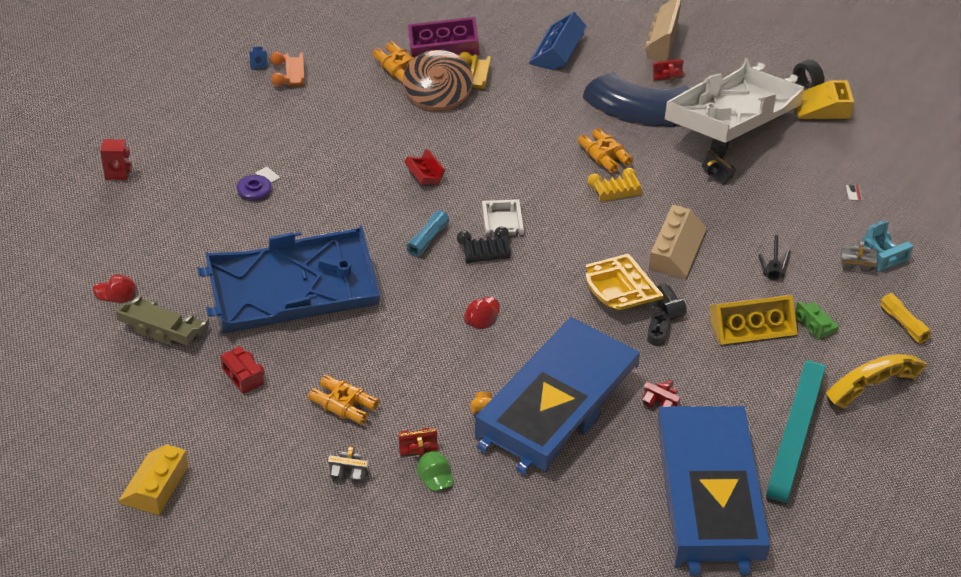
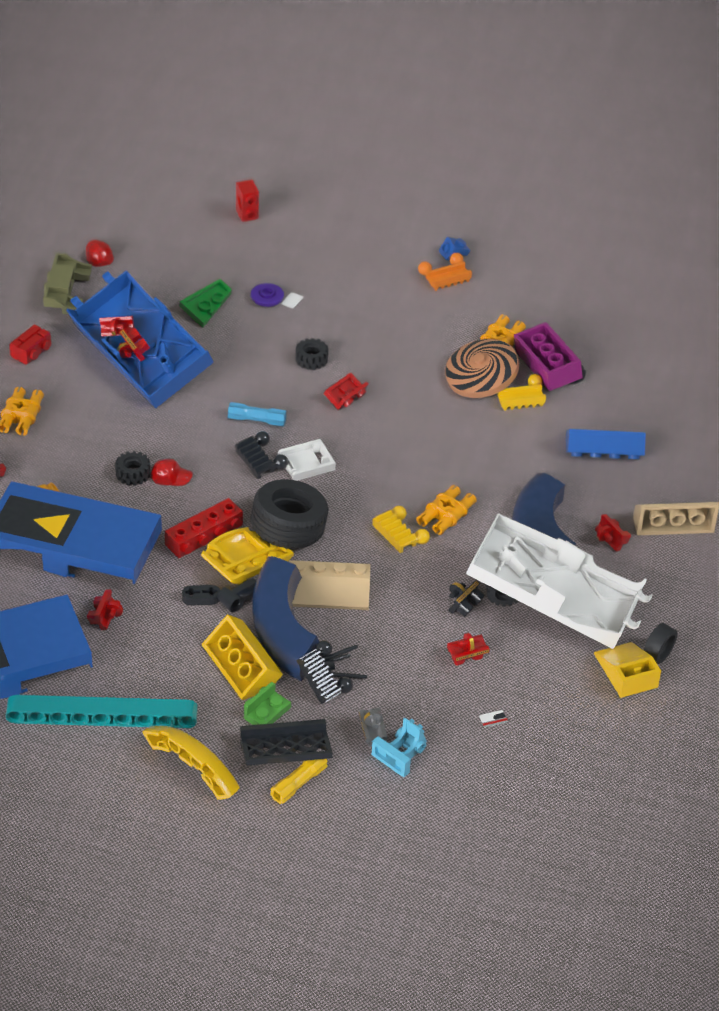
camera: 70 degrees right, 0 degrees up
(243, 229) = (206, 302): none -> green wing
(269, 288) = (113, 325): none -> red hips
(303, 287) = (132, 345): none -> red hips
(356, 171) = (311, 354): none -> black tyre
(465, 343) = (132, 476): none -> black tyre
(572, 298) = (203, 528): none -> red brick
(588, 238) = (289, 513): none -> black tyre
(718, 279) = (275, 618): none -> dark blue brick
(782, 180) = (468, 647): none -> red hips
(795, 268) = (318, 675): none -> black gear
(858, 313) = (277, 735): none -> black fence

